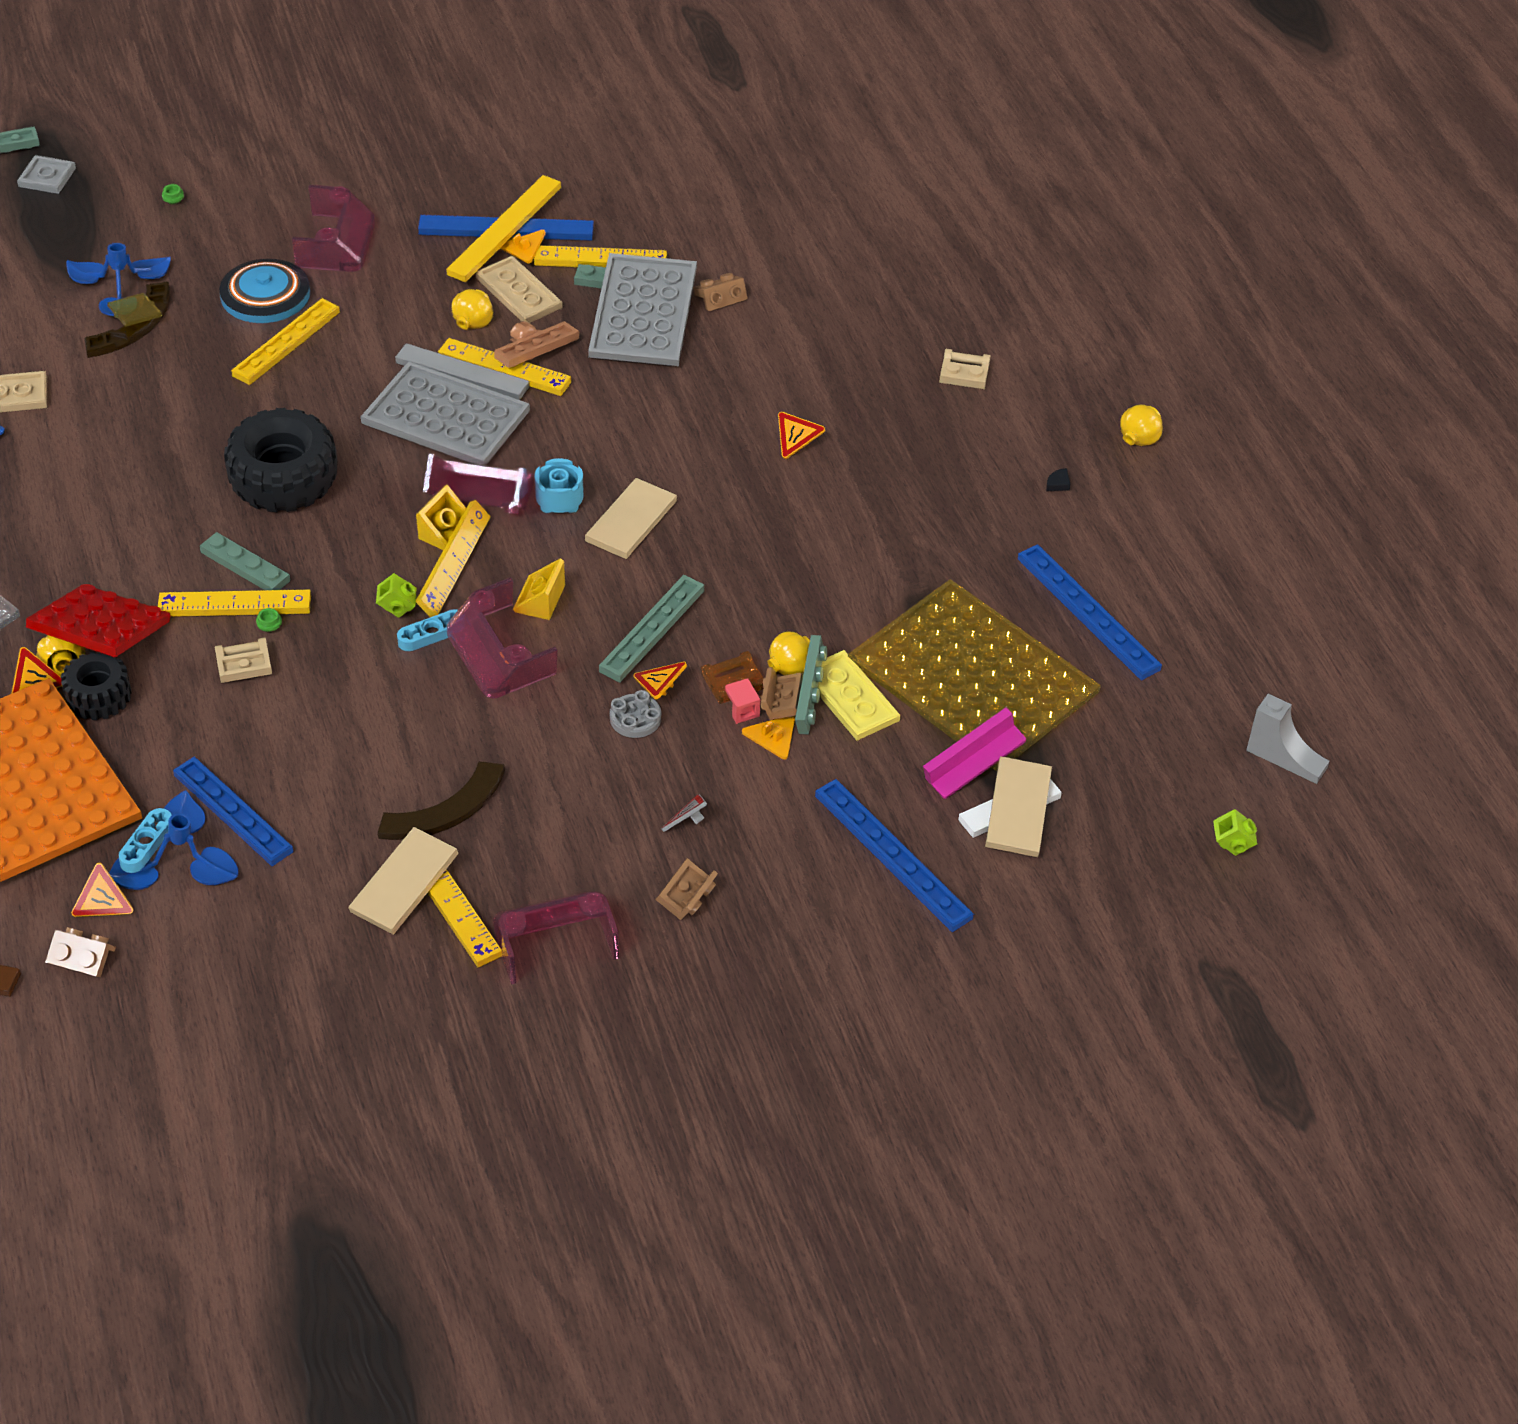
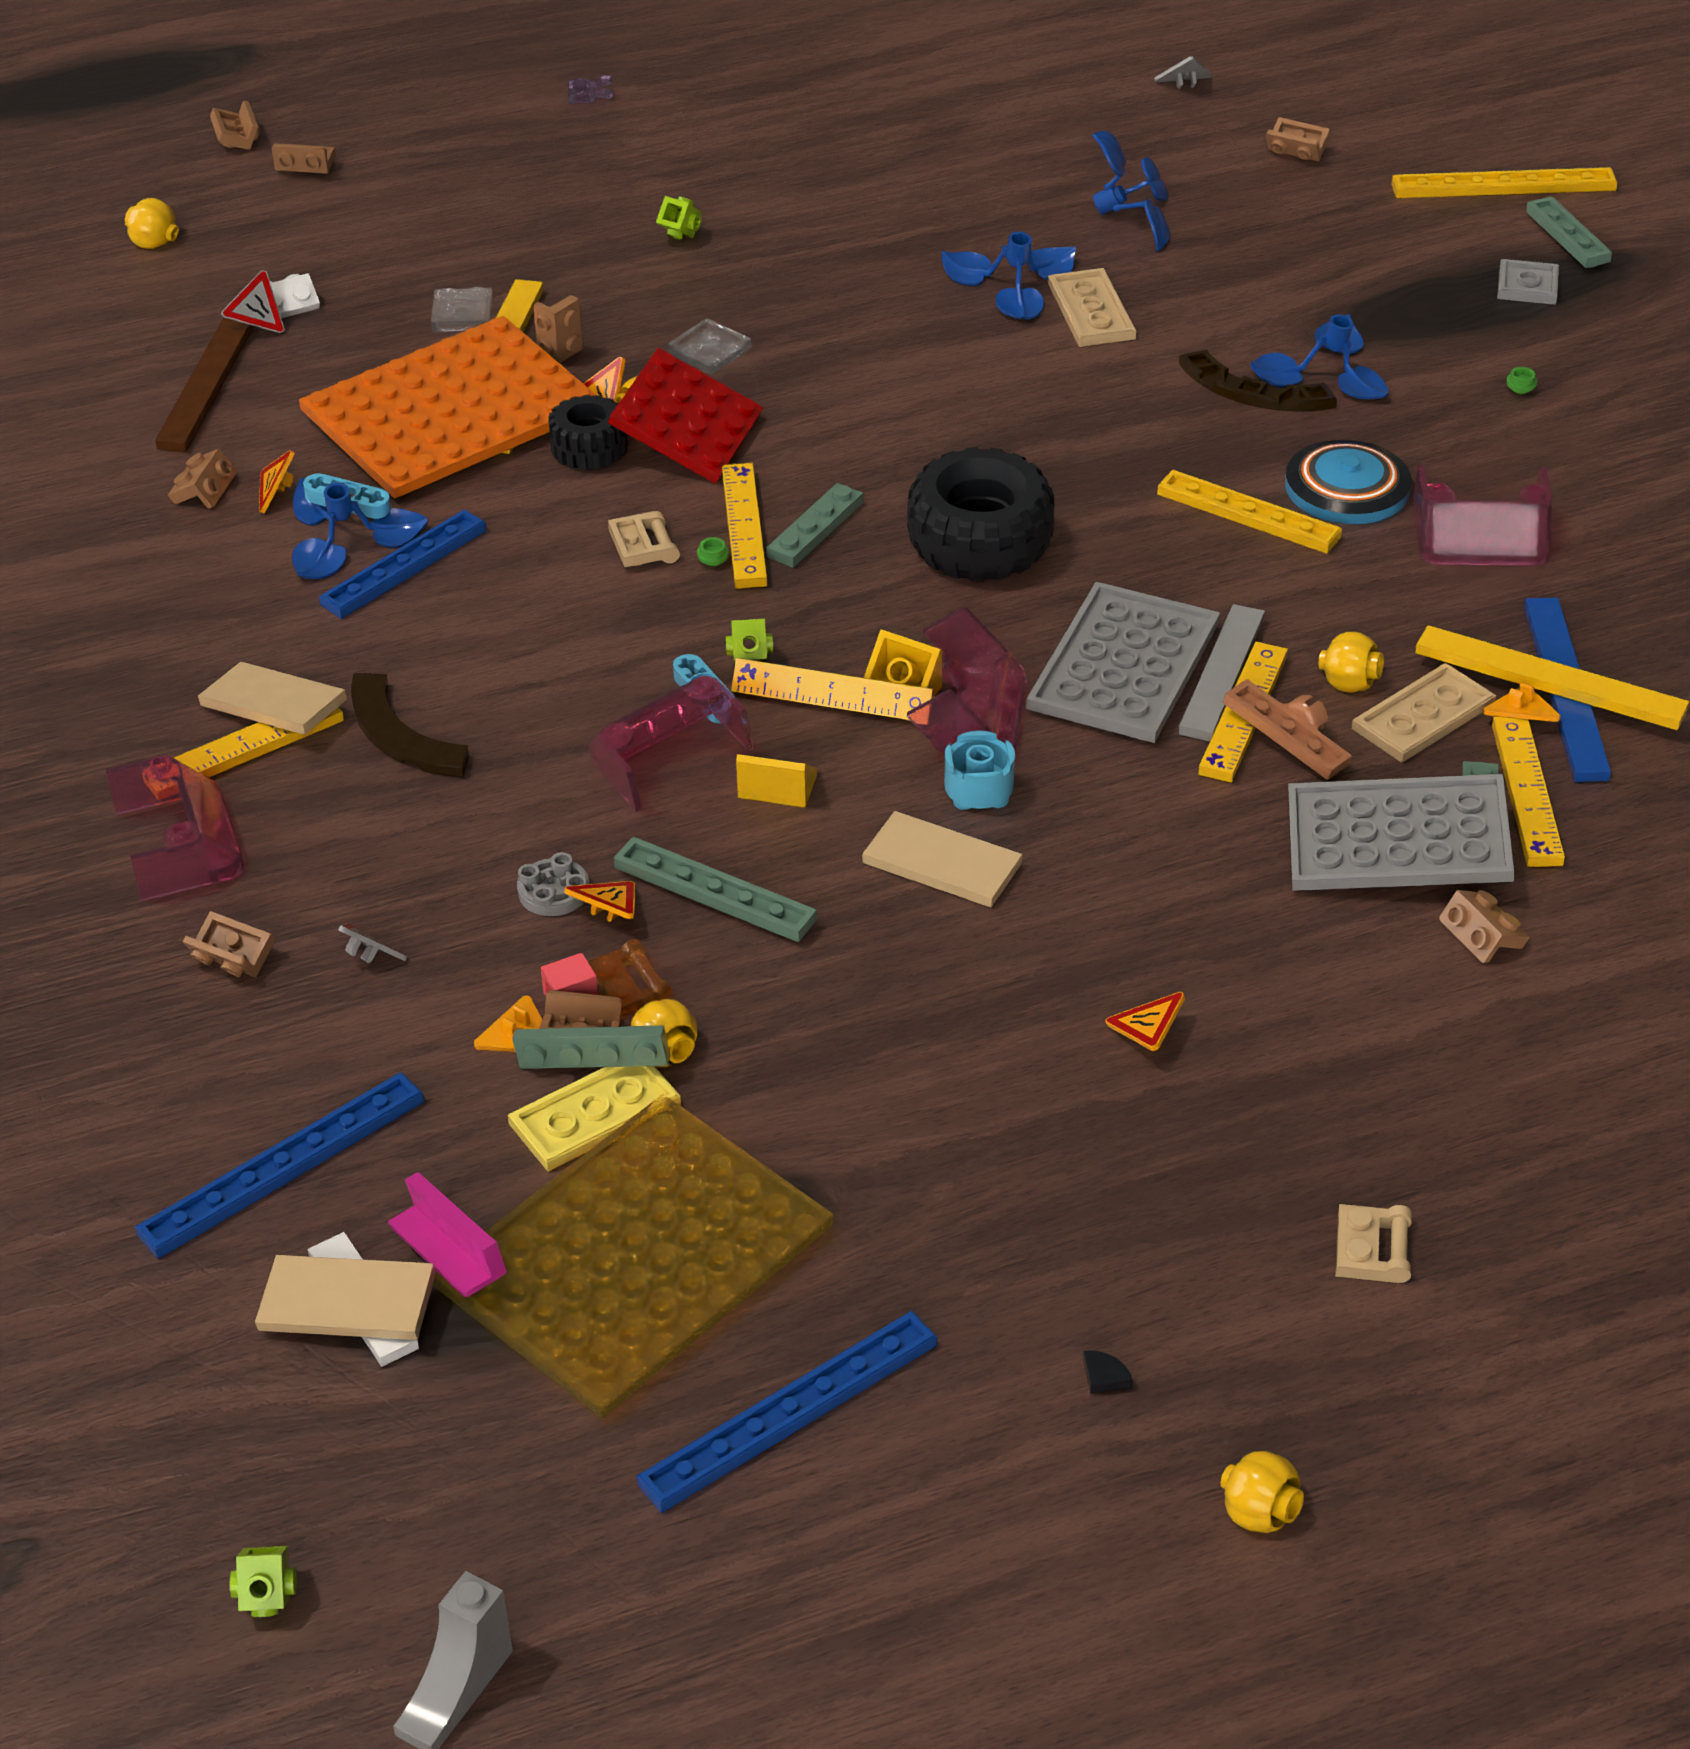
camera: 90 degrees right, 5 degrees down
(134, 309) = (1262, 374): clear yellow piece -> none

